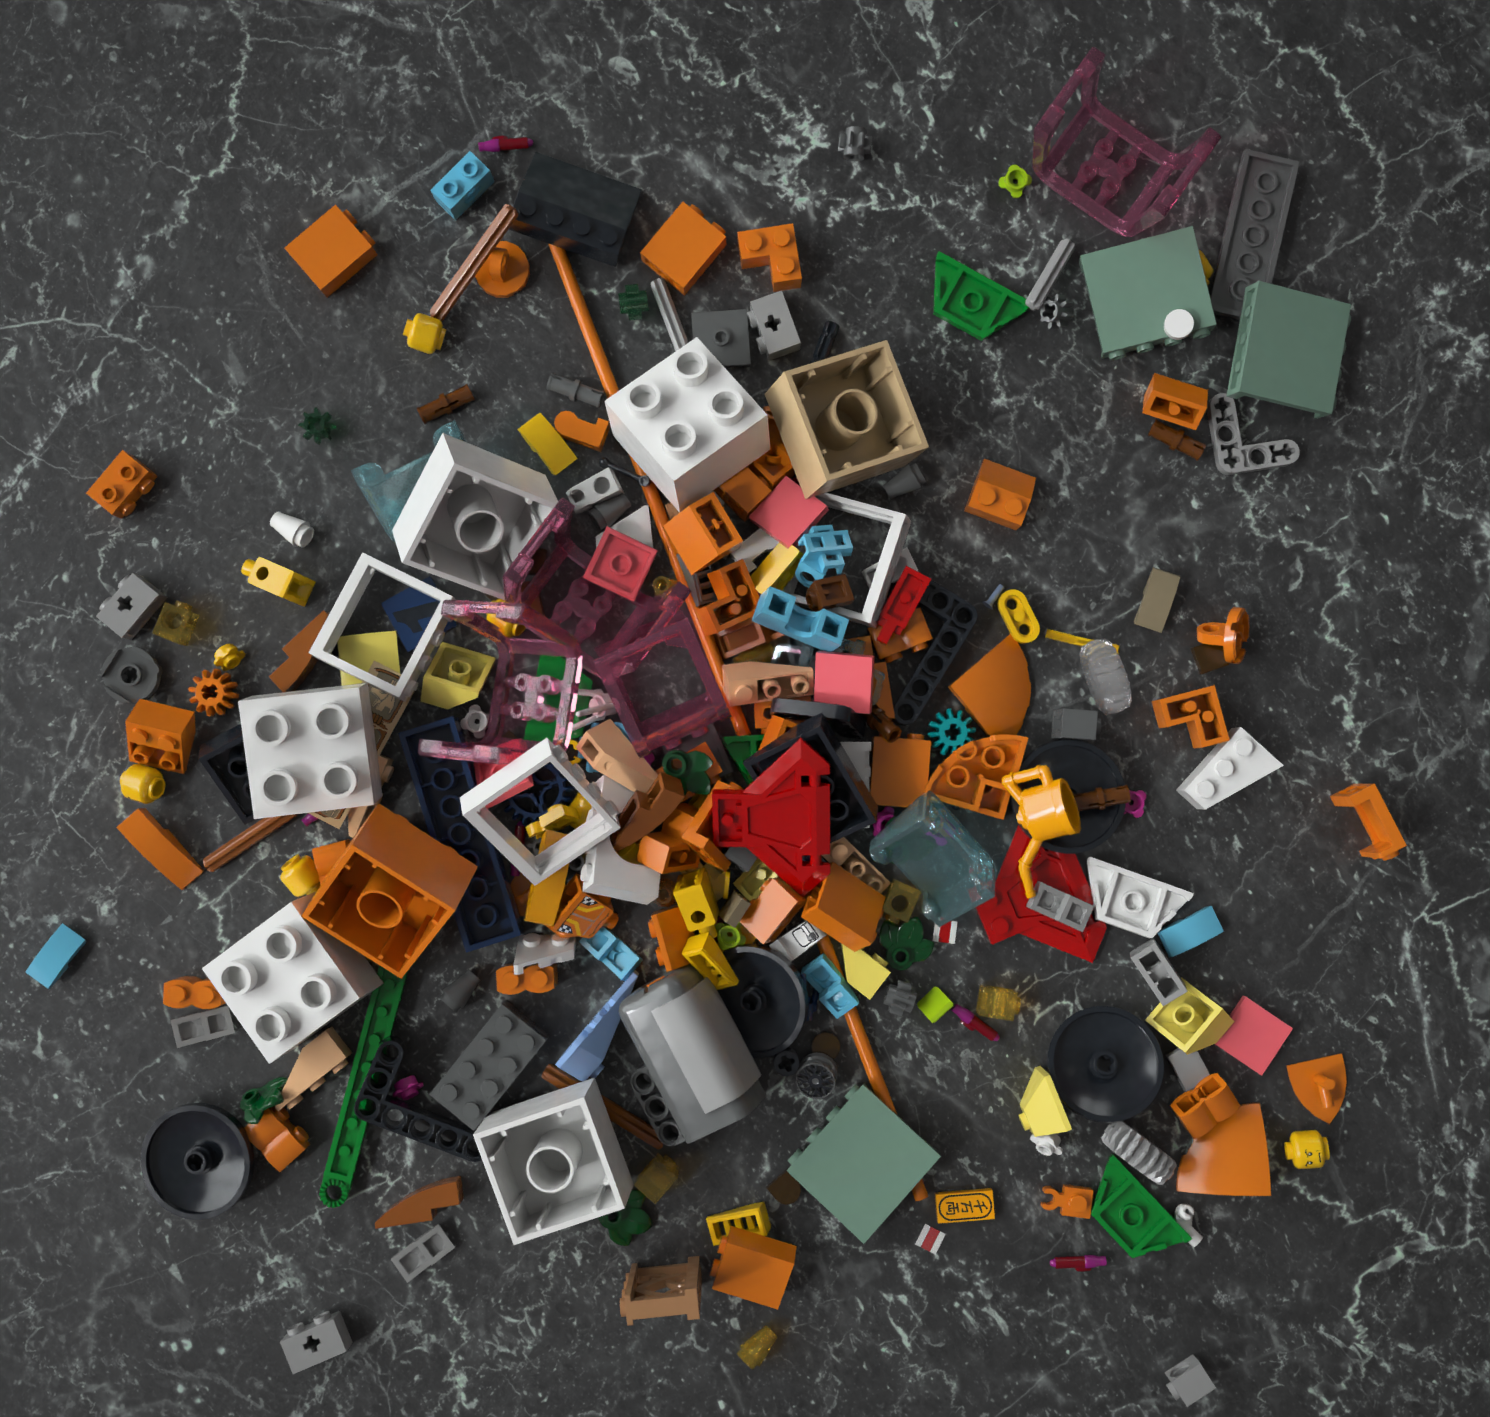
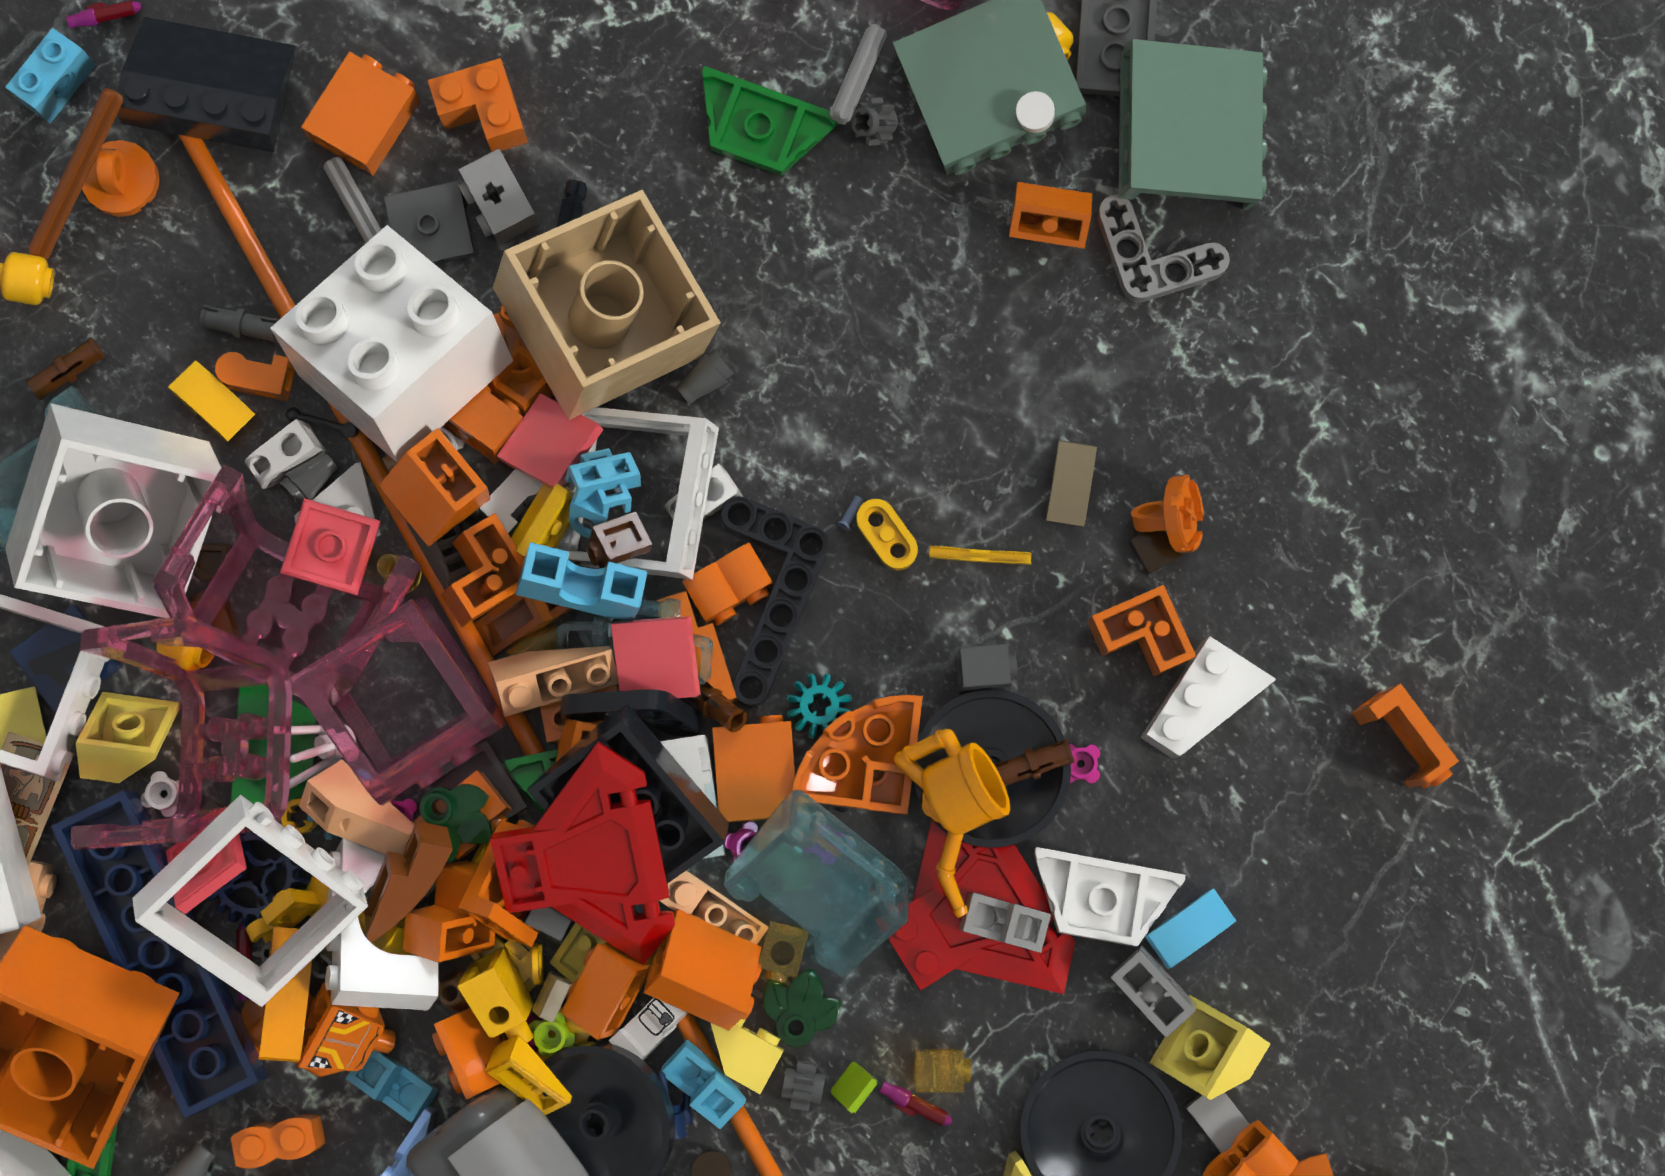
camera: 10 degrees left, 5 degrees down
(542, 950) = (295, 1098): white wing -> none
(633, 302) = (302, 194): clear green gear -> none
(901, 603) = (721, 541): red hinge -> none
(945, 933) = (855, 984): sticker -> none
(996, 689) = (872, 637): orange brick -> none
(1001, 494) = (836, 375): orange slope -> none
(1105, 676) = (1015, 596): clear gear -> none
(1176, 440) = (1062, 266): reddish brown pin -> none
(1254, 1035) = (1301, 1060): coral tile -> none
(1320, 1085) = (1406, 1114): orange shield -> none

